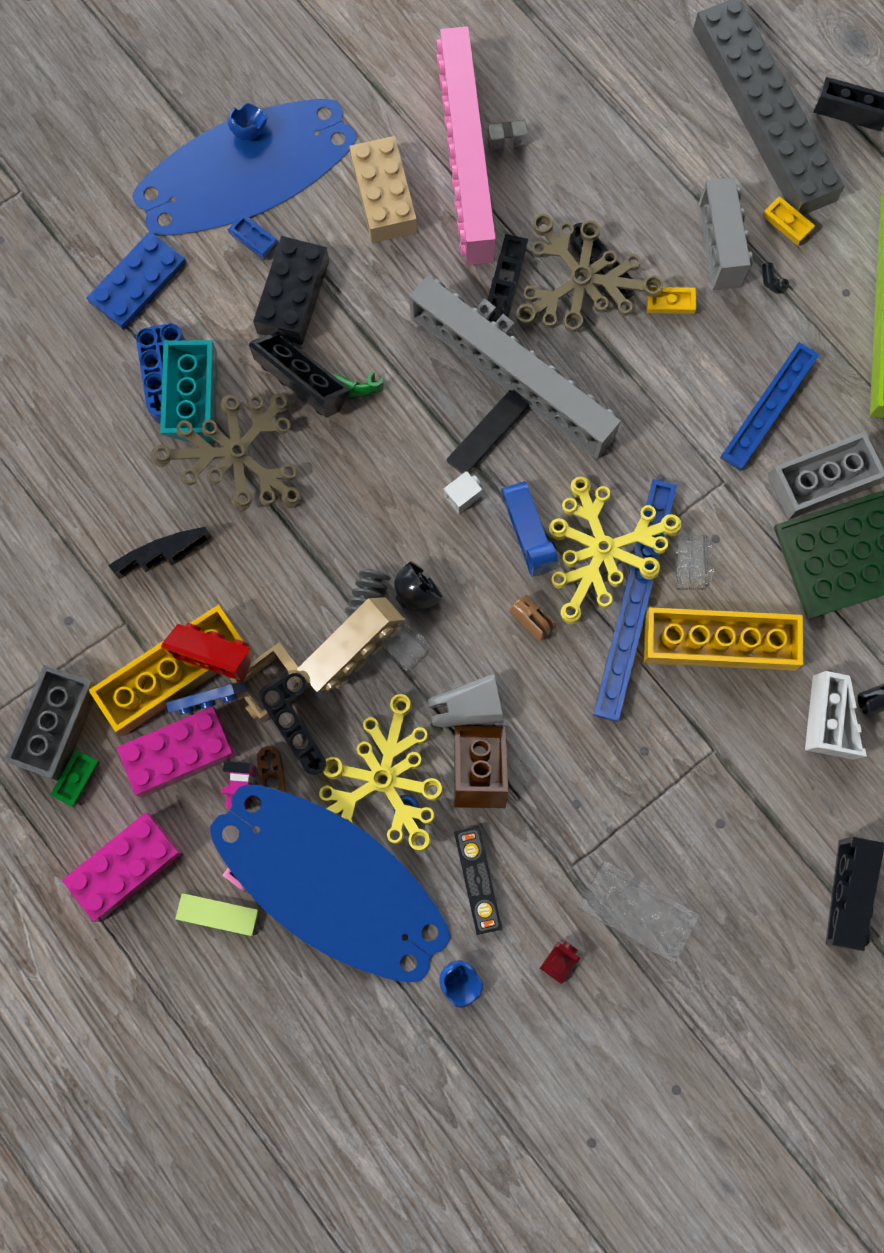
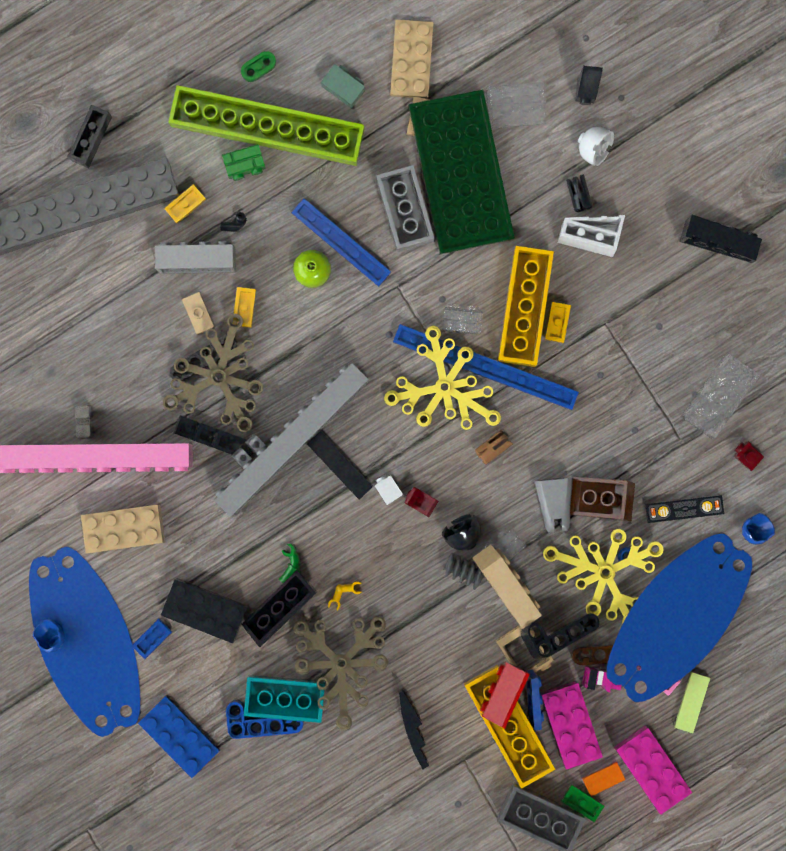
camera: 90 degrees left, 10 degrees up
(108, 804) = (603, 779): none -> orange tile
(331, 448) = (340, 589): none -> yellow arm
(452, 533) = (421, 501): none -> dark red bracket
(537, 551) = (423, 442): blue beam -> none
(657, 249) = (198, 313): none -> tan plate
(707, 685) = (557, 322): none -> yellow plate
(731, 375) = (309, 277): none -> lime cylinder
(852, 281) = (244, 162): none -> green brick

